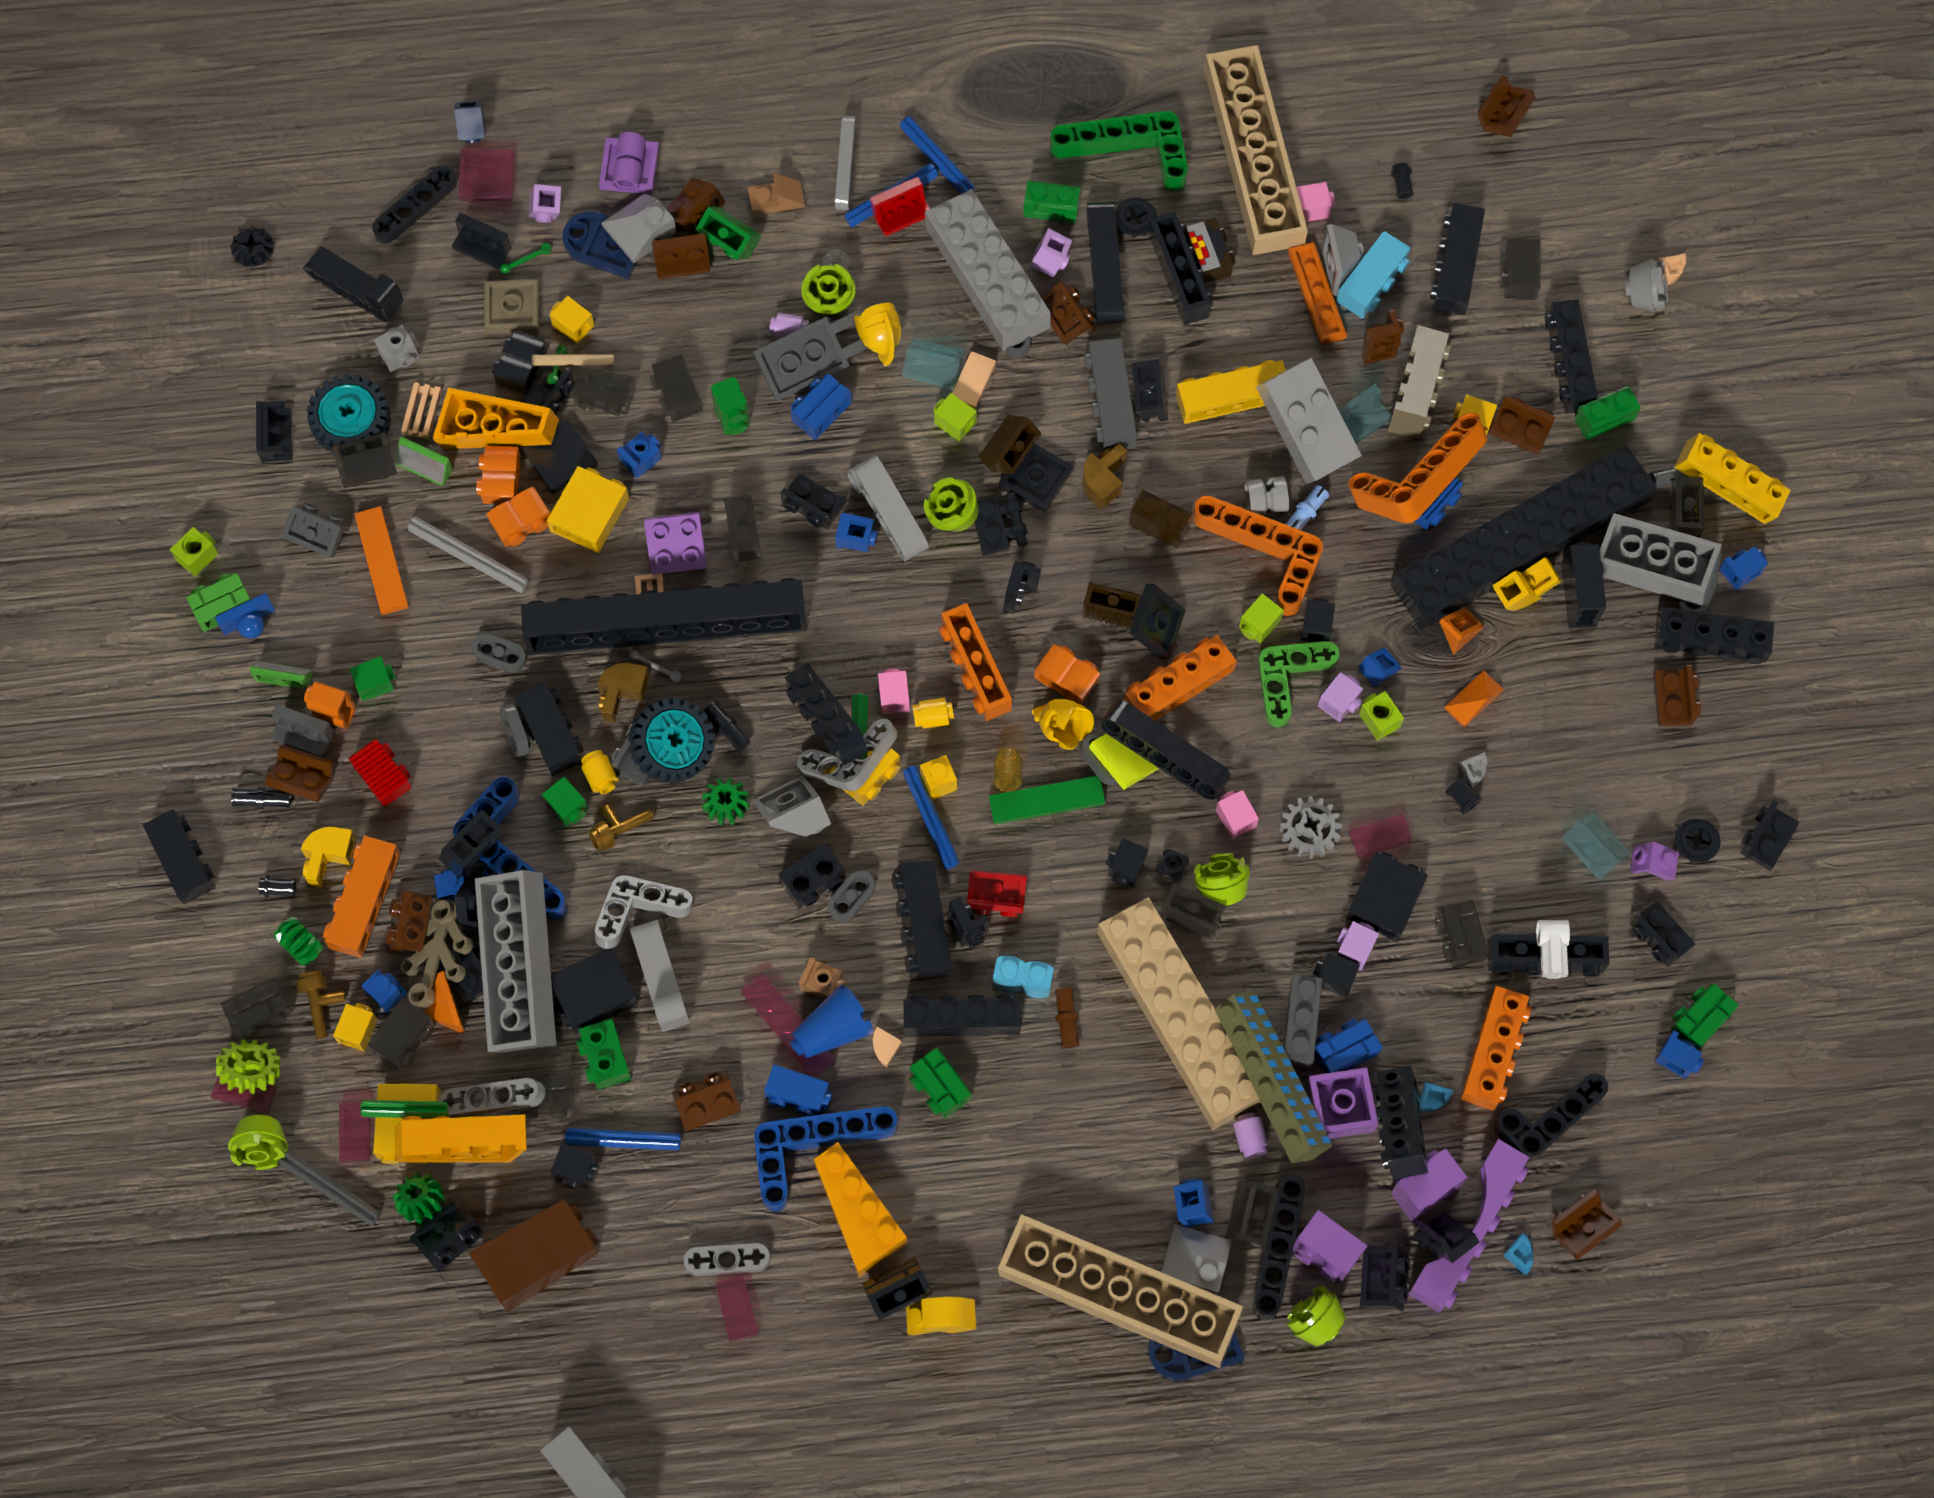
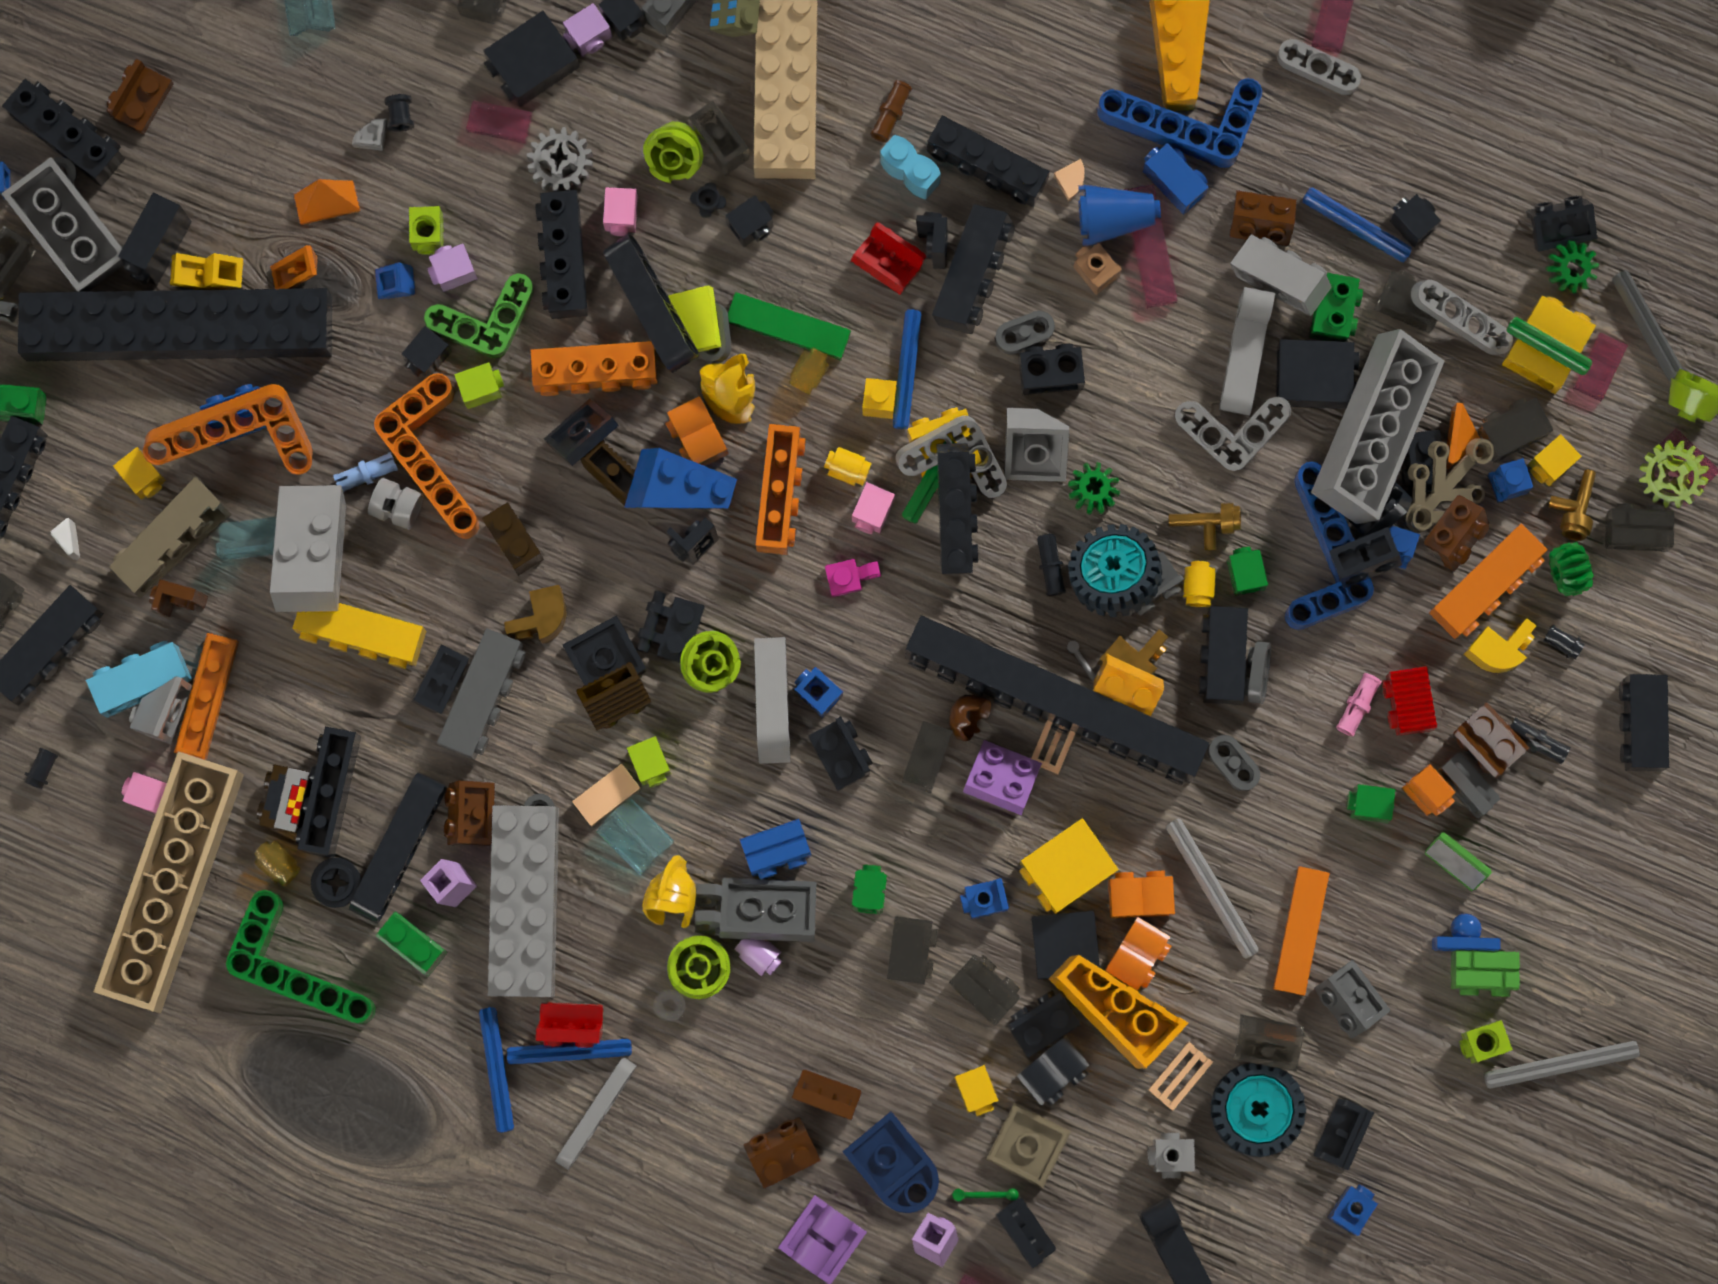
camera: 150 degrees left, 10 degrees up
(126, 569) = (1561, 1064): none -> light grey axle
(246, 377) = (1342, 1213): none -> blue brick
(421, 750) = (1358, 704): none -> bright pink pin
(423, 461) = (1207, 1014): slope -> none
(460, 1139) = (1511, 288): light orange wedge -> none
(535, 1254) = (1493, 156): reddish brown slope -> none
(553, 378) = (1031, 1026): green hinge -> none
(573, 359) = (999, 1039): tan bar -> none
(611, 651) = (1128, 685): none -> light orange brick
(639, 225) = (851, 1157): light grey slope -> none
(662, 1050) = (1281, 272): none -> light grey brick
(728, 233) = (763, 1094): green brick -> none
(728, 569) = (966, 713): none -> reddish brown hair
(777, 196) = (688, 1118): medium nougat slope -> none
(883, 633) = (846, 576): none -> dark pink plate
(939, 1083) = (1041, 113): green brick -> none
(1055, 614) = (677, 483): none -> blue wedge
(1187, 205) = (276, 863): none -> clear yellow brick
(1260, 754) = (563, 254): none -> black brick
(1494, 341) = (66, 537): none -> white slope
(1522, 424) = (99, 441): reddish brown bracket -> none

